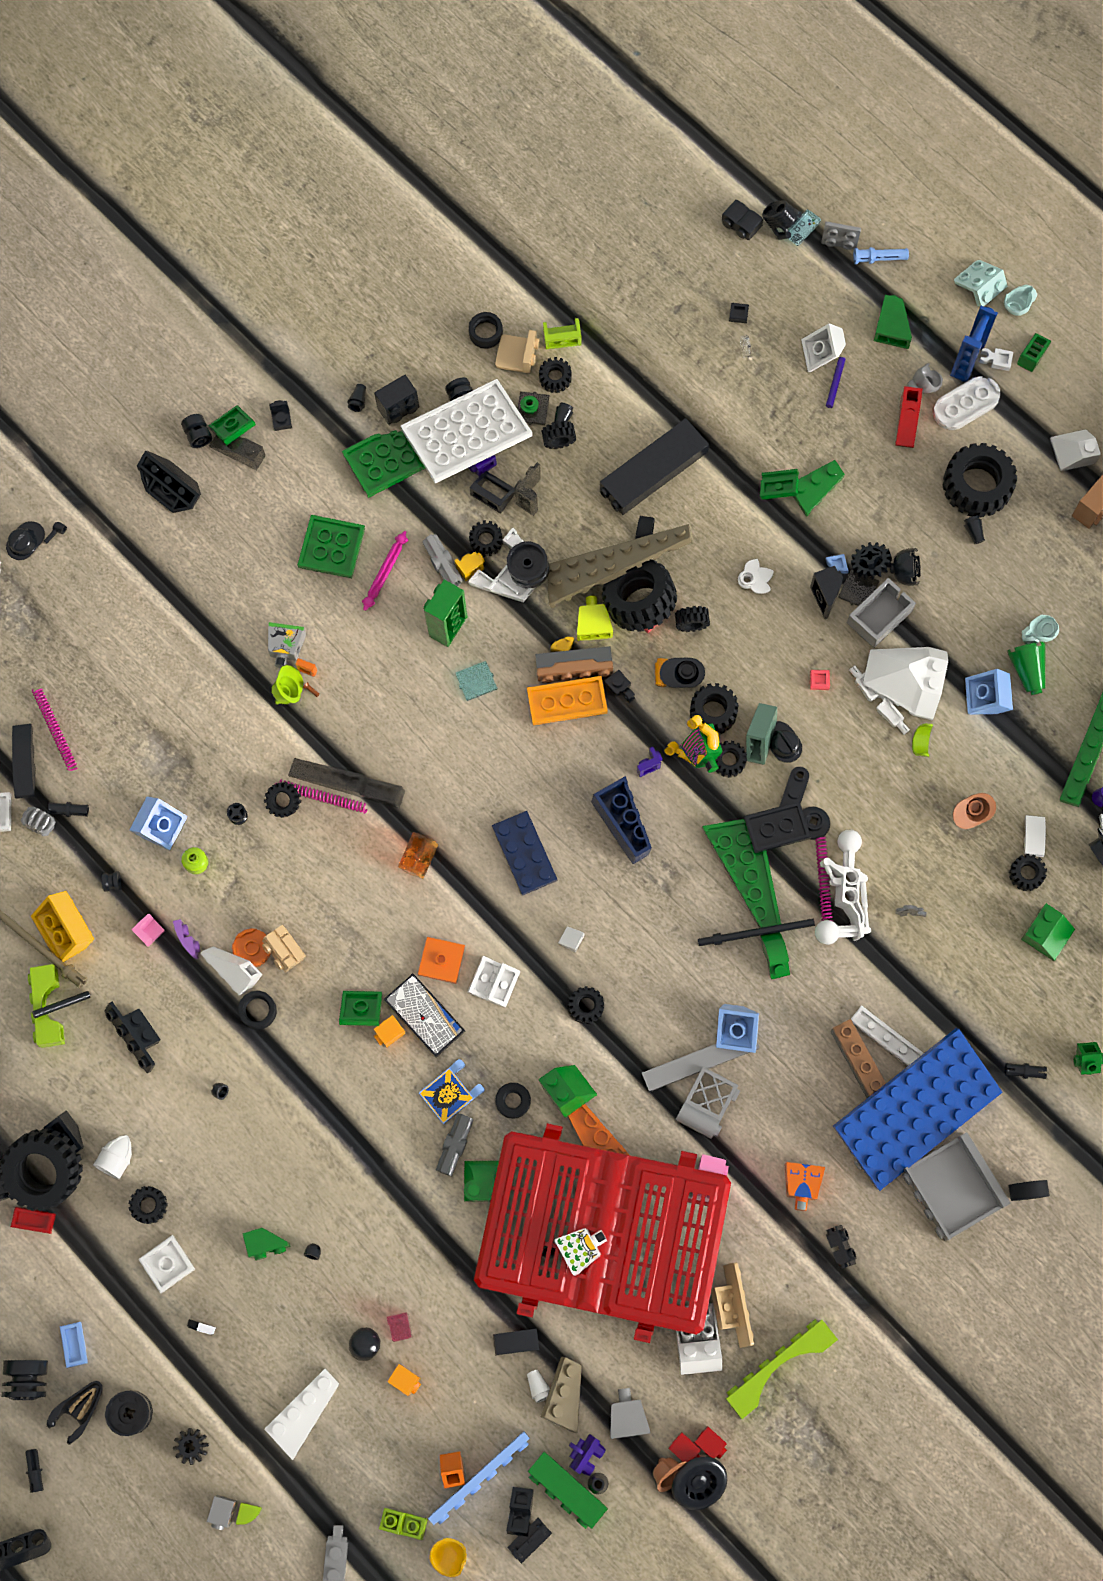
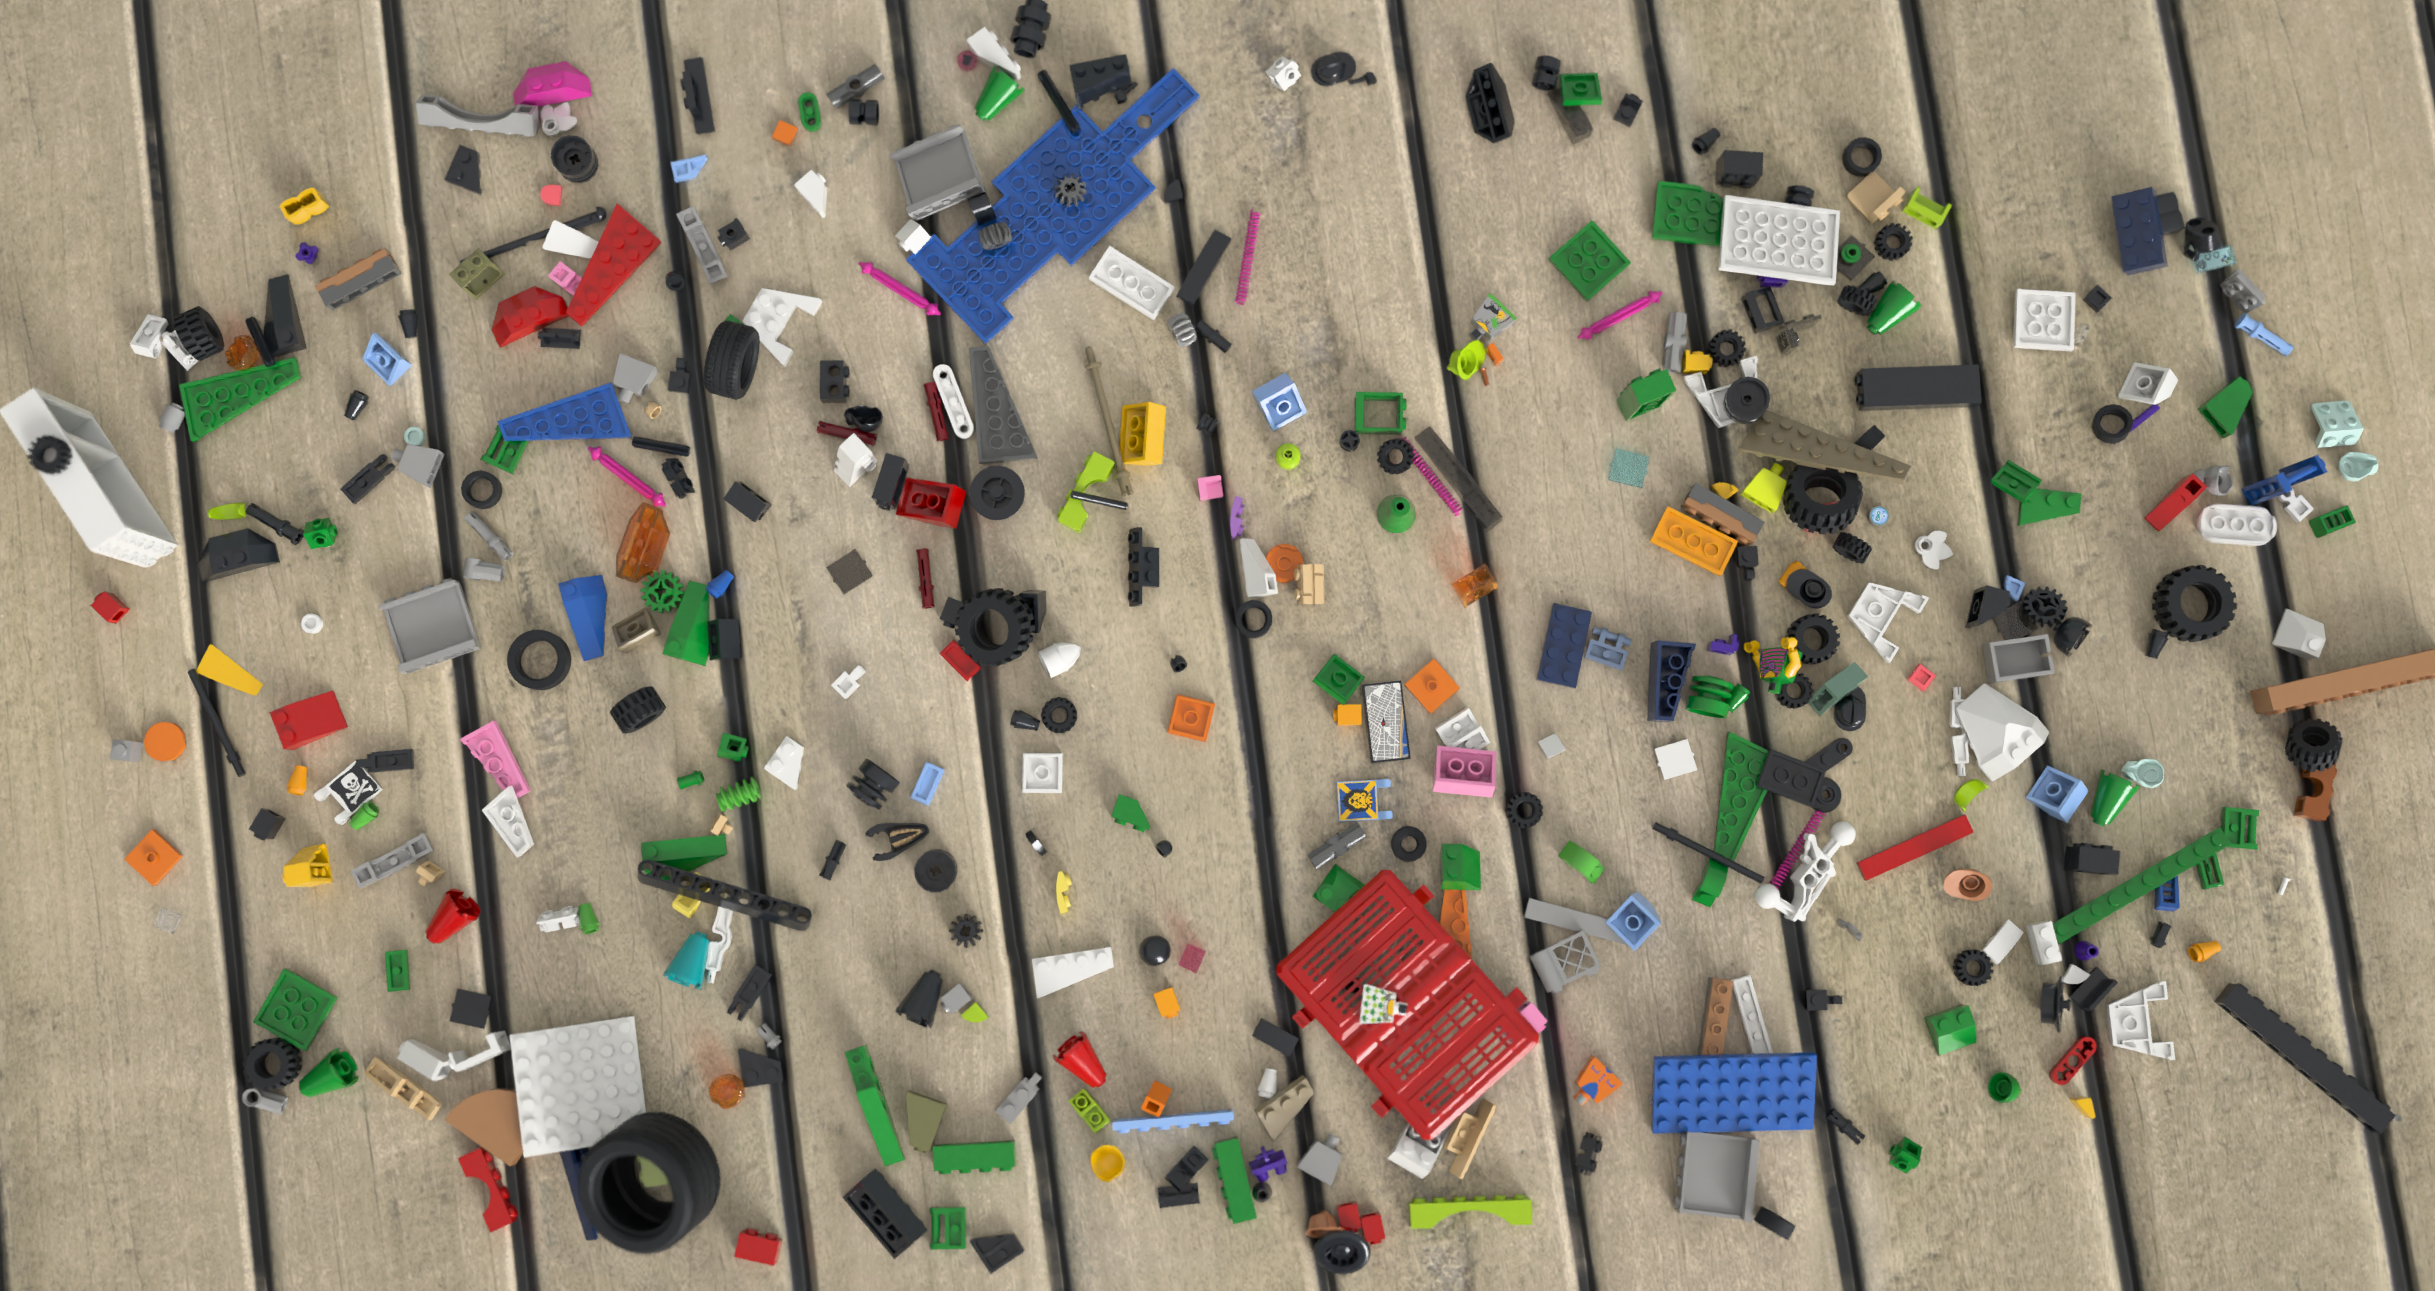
camera: 30 degrees right, 10 degrees up
(120, 1231) = (1024, 721): none -> black cone
(192, 1535) = (922, 1000): none -> black cone
(236, 763) = (1360, 397): none -> green window
(247, 1346) = (1062, 885): none -> light yellow slope
(261, 1127) = (1191, 718): none -> orange tile
(315, 844) = (1393, 519): none -> green cone
(366, 1484) = (1081, 1060): none -> red cone
(515, 1008) = (1464, 771): none -> bright pink slope
(561, 835) = (1606, 654): none -> sand blue plate
(590, 422) = (1892, 309): none -> green cone
(662, 1012) = (1581, 861): none -> bright green brick
(666, 809) = (1709, 696): none -> green wheel
(677, 878) = (1675, 759): none -> white piece
(689, 796) = (1739, 696): none -> green cone
(695, 582) = (1878, 516): none -> tile
(711, 354) = (2044, 320): none -> white plate
(732, 243) = (2139, 231): none -> dark blue brick
(746, 653) = (1876, 610): none -> white wing
(818, 380) = (2116, 410): none -> black tyre
(913, 812) = (1915, 847): none -> red tile
(929, 985) = (1818, 999): none -> black plate
(1052, 723) = (2092, 859): none -> black brick
(1065, 813) = (2043, 942): none -> white brick

